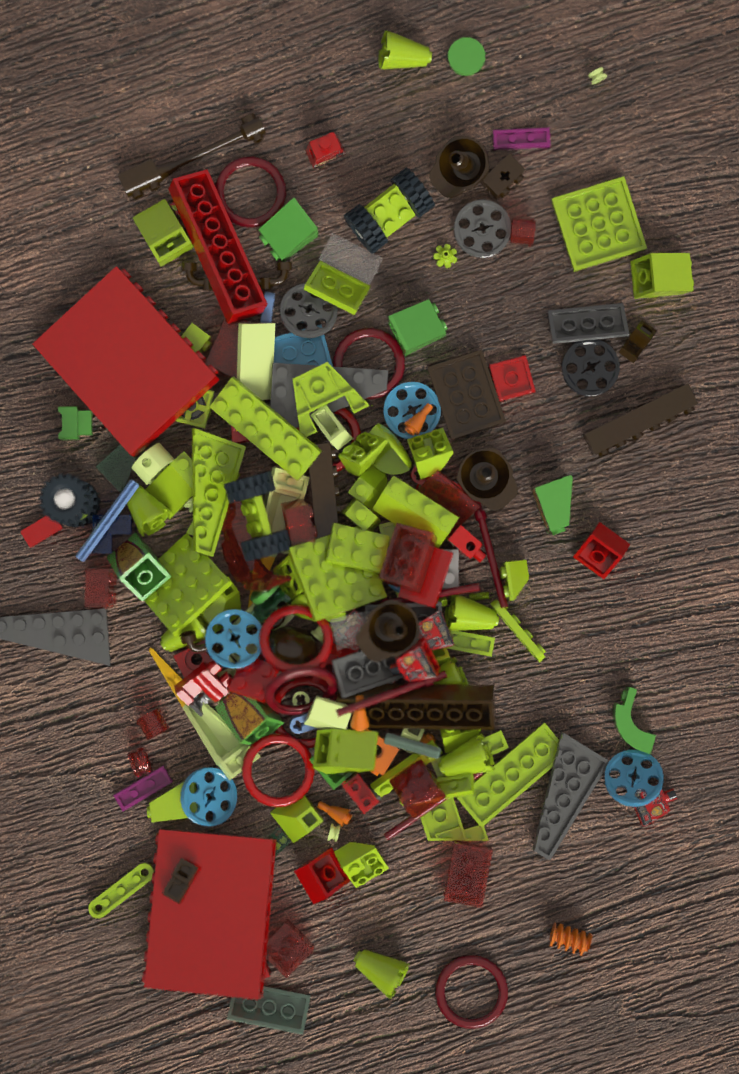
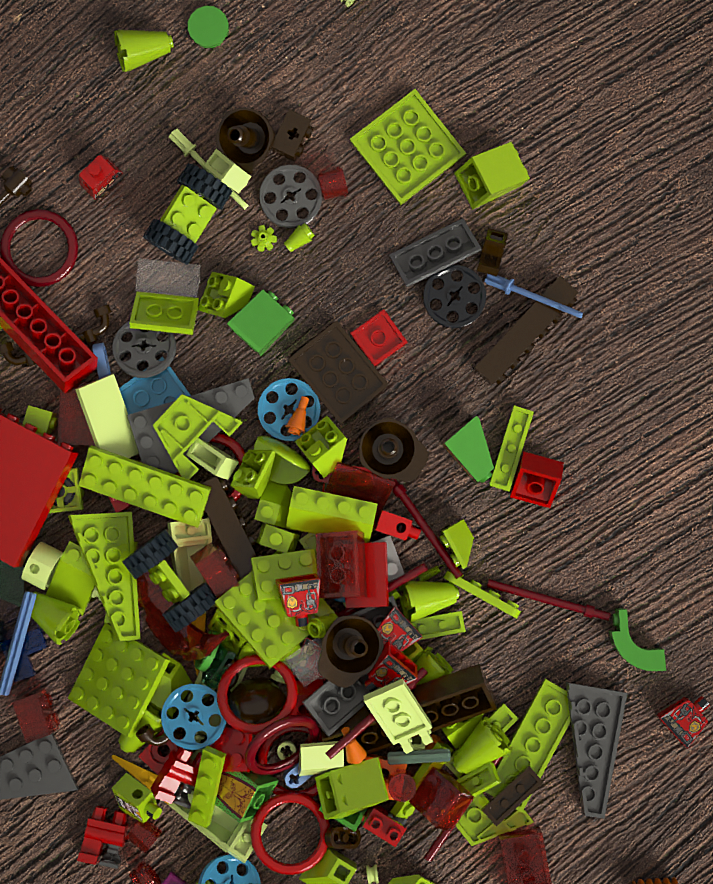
camera: 20 degrees left, 0 degrees up
(117, 708) = (100, 831): none -> red hips
(138, 567) = (67, 679): bright green slope -> none
(158, 690) = (136, 799): none -> lime torso
(223, 702) = (206, 786): none -> lime plate
(288, 231) = (92, 274): bright green slope -> none
(320, 791) = (342, 837): none -> dark brown plate
(339, 814) = (370, 853): orange cone -> none
(363, 570) = (299, 596): none -> torso
(370, 601) = (318, 626): none -> lime cone
(388, 339) = (234, 345): dark red wedge -> none
(388, 764) = (401, 785): none -> clear red piece
(394, 292) = (225, 295): none -> lime slope
(410, 154) = (189, 149): none -> yellowish green piece
(410, 701) = (399, 714): none -> yellowish green tile
(437, 186) = (227, 171): none -> yellowish green slope
(477, 266) = (300, 237): none -> lime cone
(479, 809) = (512, 795): none -> dark brown plate
(521, 138) = (296, 89): magenta tile -> none
(589, 515) = (511, 448): none -> lime plate
(603, 679) = (587, 610): none -> dark red bar
(639, 376) = (508, 286): none -> medium blue piece
(640, 783) = (651, 709): dark azure wedge -> none

